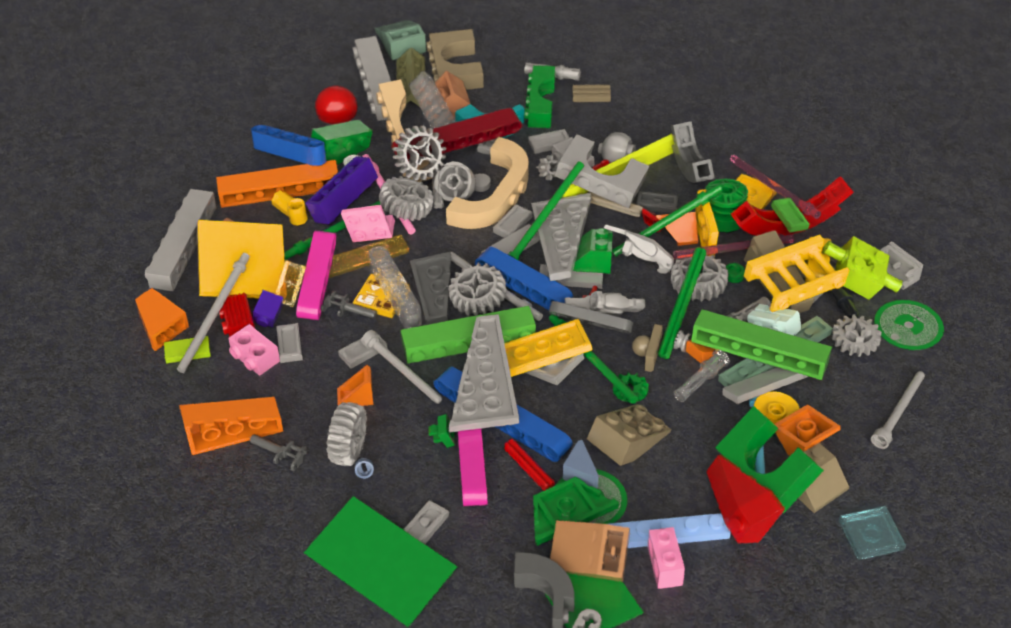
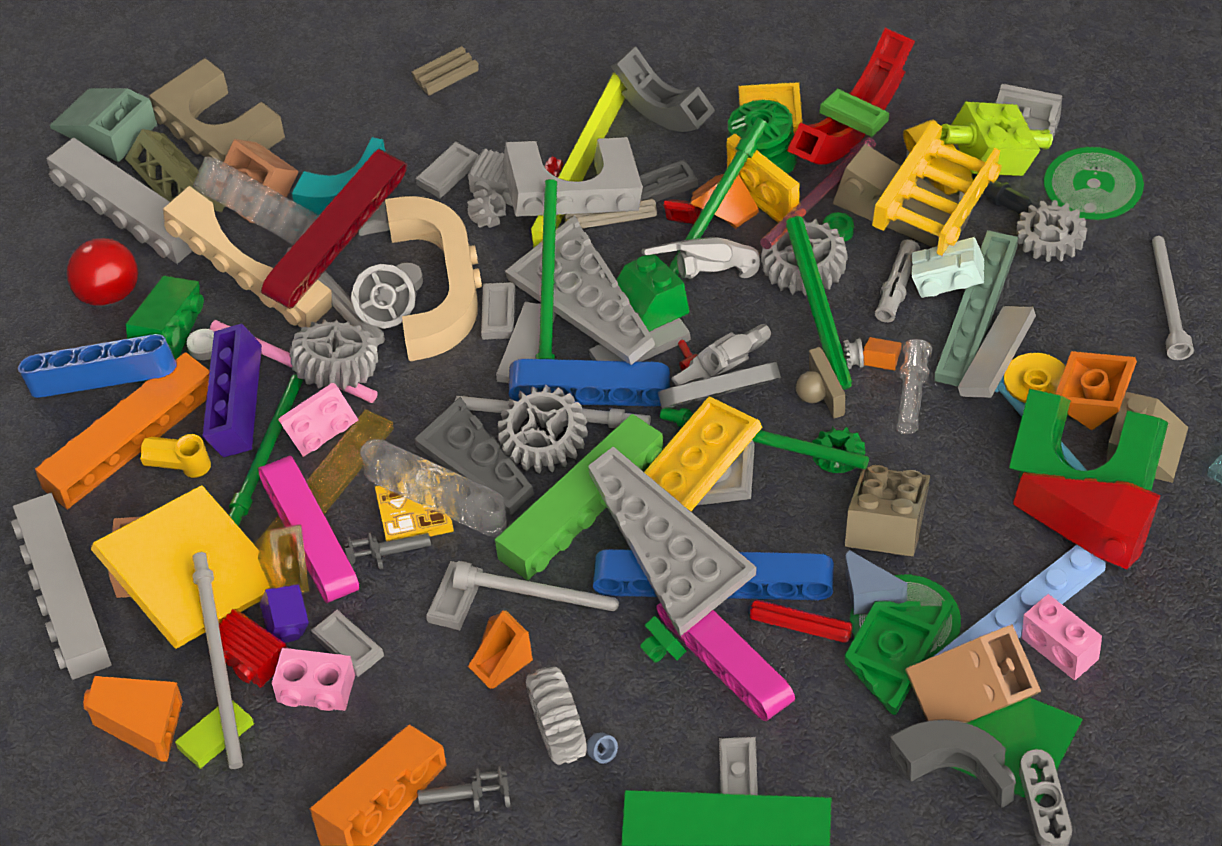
camera: 30 degrees left, 5 degrees up
(428, 138) = (316, 279): light grey gear -> none
(540, 83) = (401, 130): green arch -> none
(561, 71) = (371, 63): light grey pin -> none
(616, 147) = (554, 133): light grey plant -> none
(761, 344) = (959, 304): bright green brick -> none
(807, 208) = (870, 92): clear pink bar -> none

